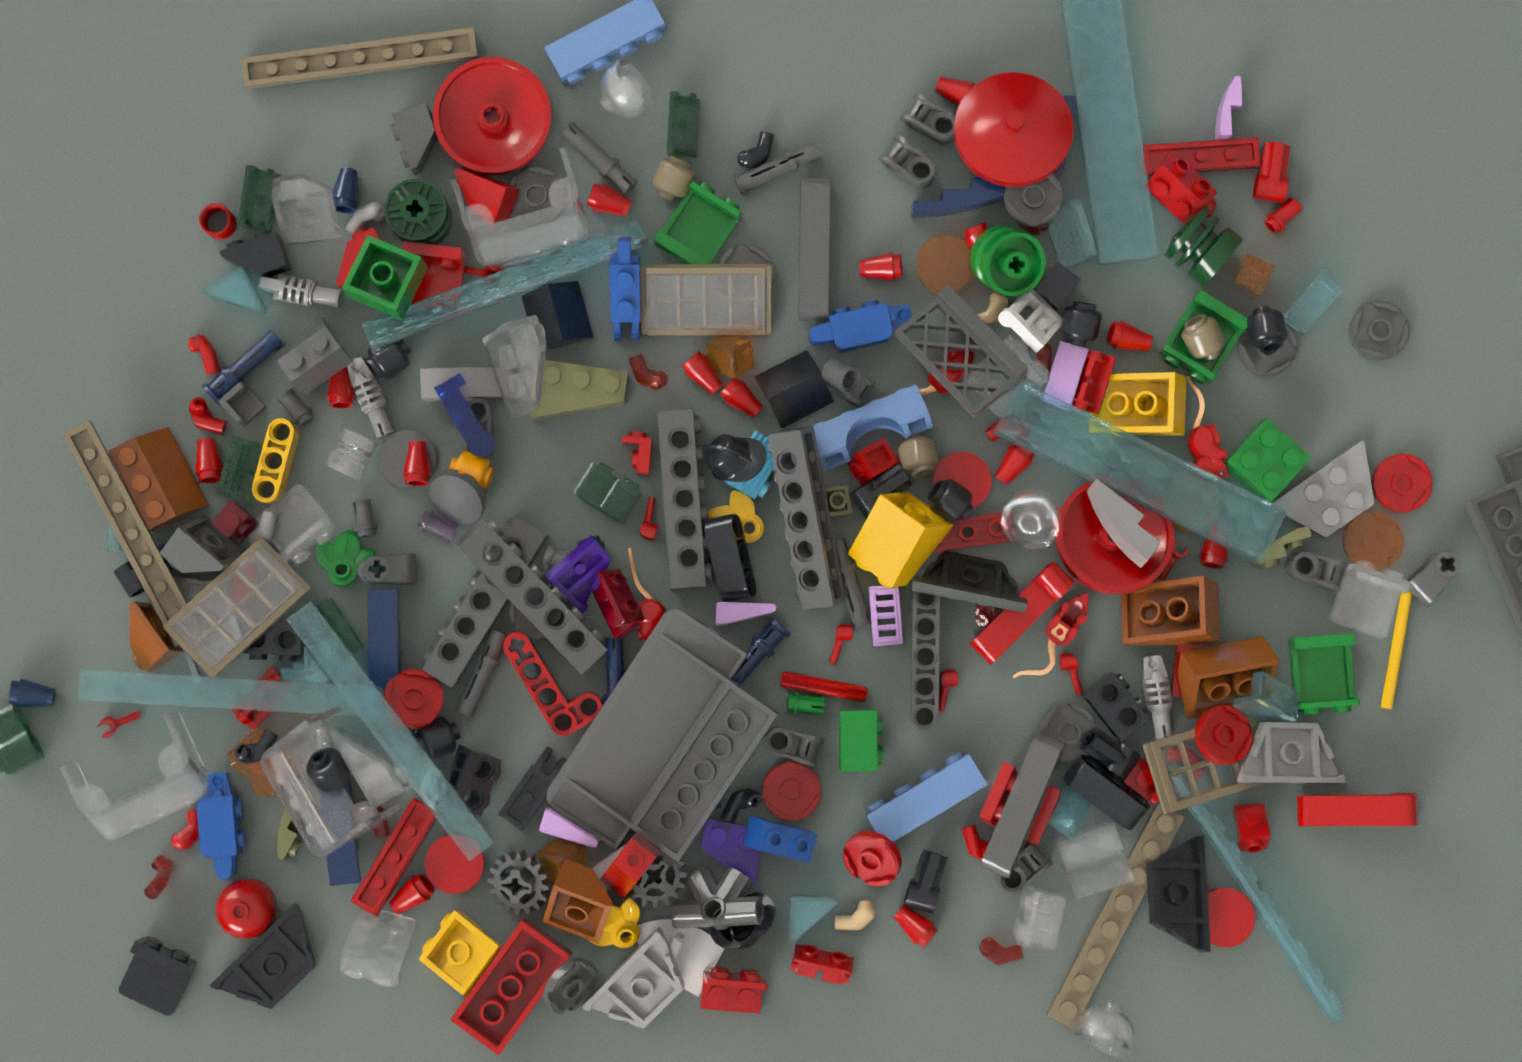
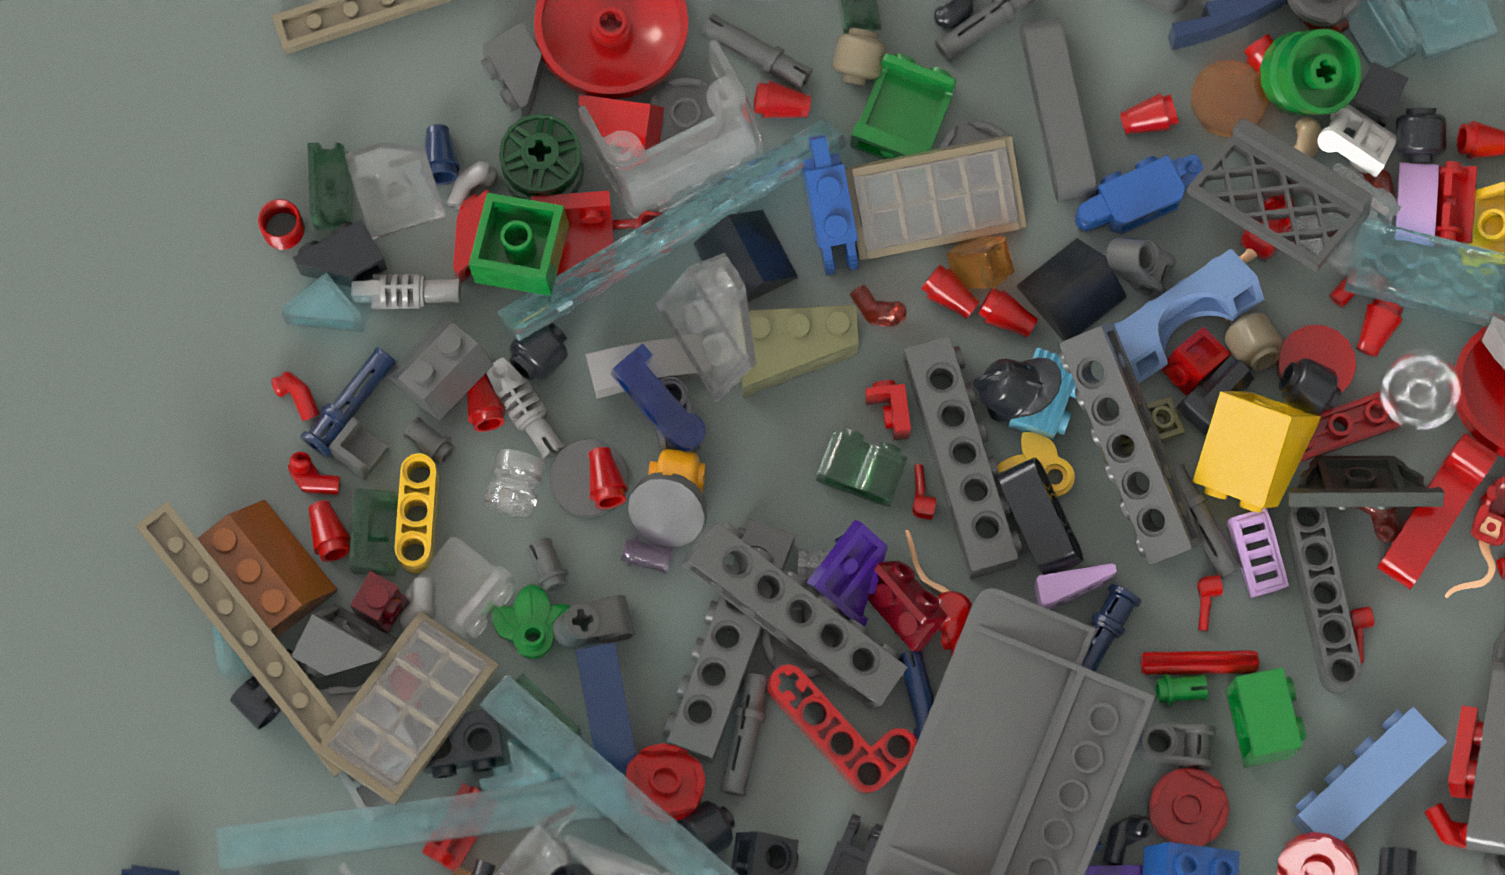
camera: 10 degrees left, 10 degrees down
(148, 639) = (297, 777): dark orange slope -> none

